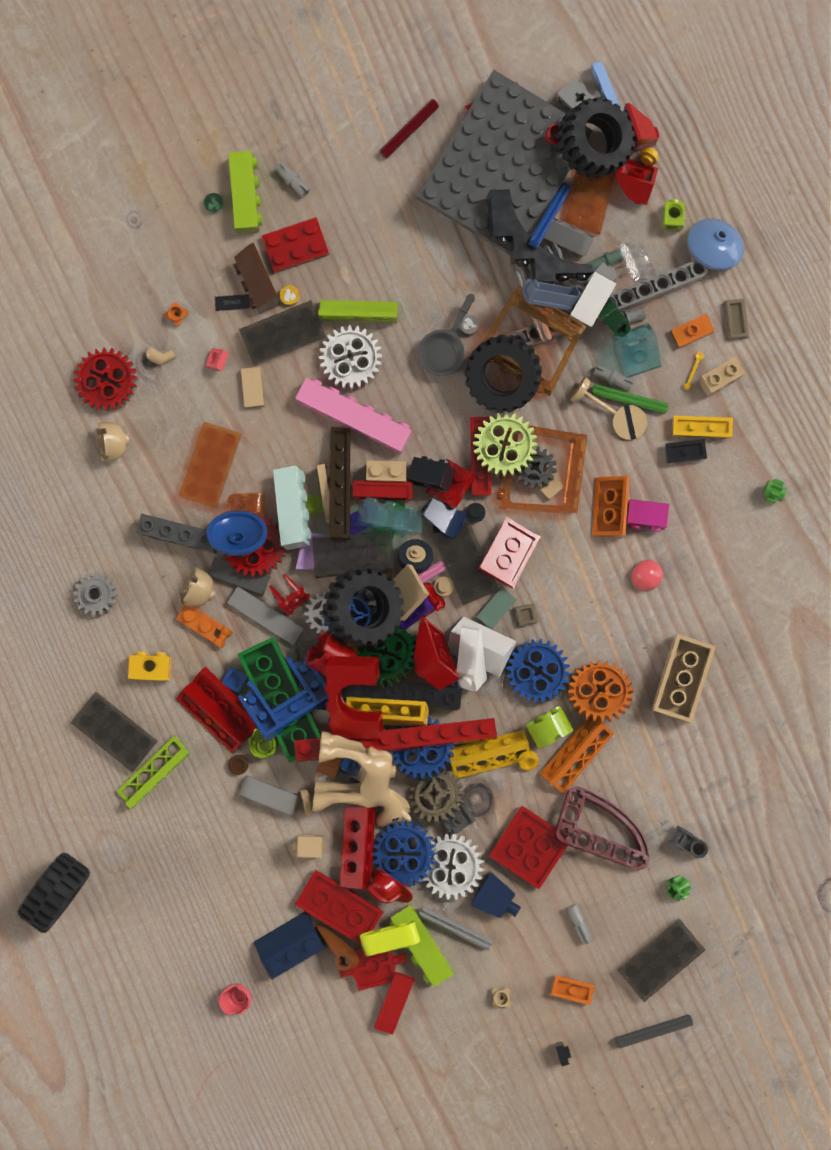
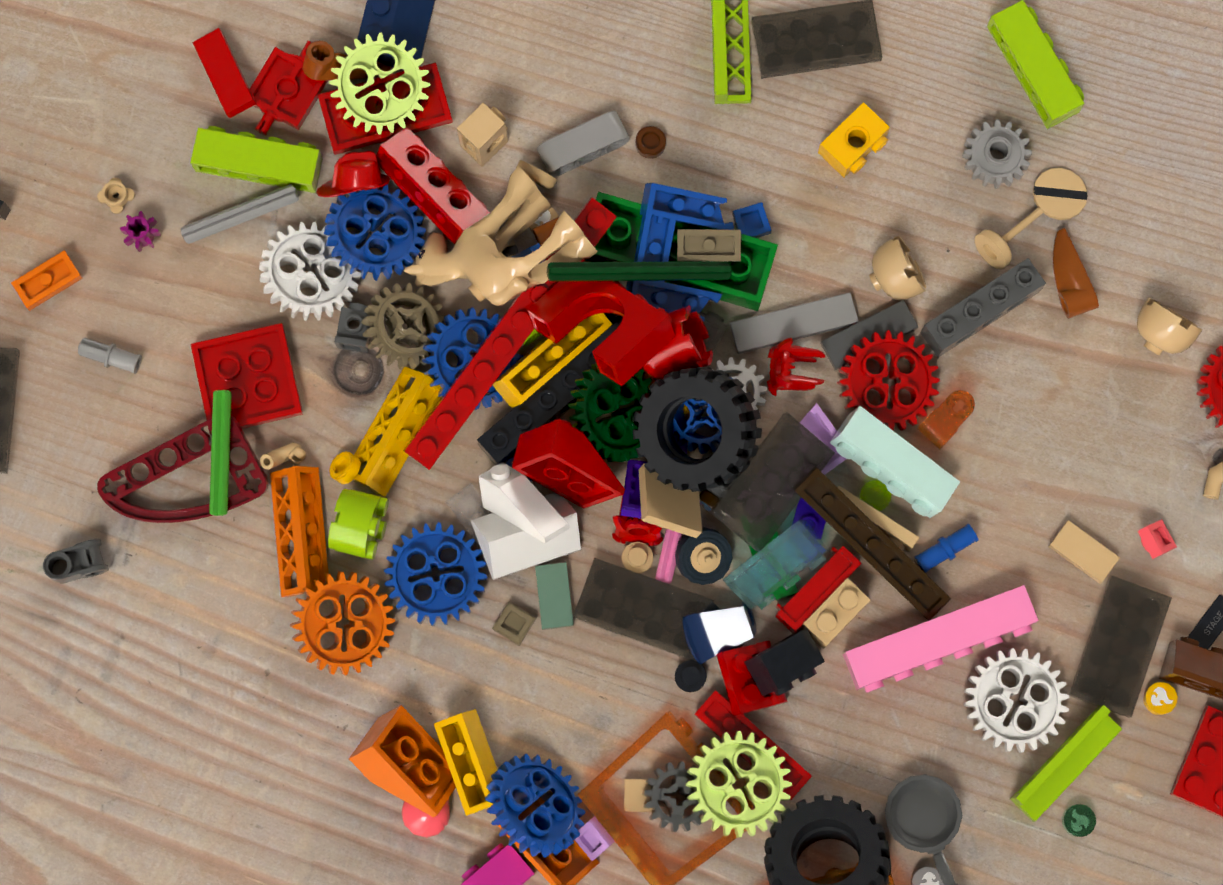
camera: 130 degrees right, 5 degrees down
(32, 616) = (1036, 64): none -> lime brick
(89, 548) = (1056, 193): none -> tan piece
(126, 505) = (1072, 281): none -> dark orange piece
(204, 625) = (846, 244): orange plate -> none
(210, 464) = (1033, 418): clear orange plate -> none
(217, 709) = (737, 171): red slope -> none
(236, 533) = (930, 375): blue dish -> none
(260, 747) = (639, 177): lime hair -> none
(268, 684) = (708, 245): none -> dark tan plate
(309, 450) = (946, 548): none -> blue pin
(312, 703) = (638, 271): none -> dark green axle
(326, 936) = (365, 58): none -> yellowish green gear
(379, 283) = (1078, 820): none -> clear green tile
(390, 938) = (296, 126): neon yellow beam -> none
(495, 897) = (229, 287): dark blue torso -> none
(509, 552) = (605, 669): plate -> none
(514, 968) = (134, 225): none -> magenta gear
(550, 796) = (282, 454): none -> tan arm
(573, 826) = (220, 452): none -> bright green axle
(589, 488) = (594, 838): none -> lavender plate
(599, 543) = (548, 827): none -> blue gear
(607, 573) = (467, 758): none -> yellow brick
(635, 602) = (405, 761): none -> orange slope
(678, 888) = (38, 502): bright green gear -> none
(683, 678) = (265, 734): tan brick -> none

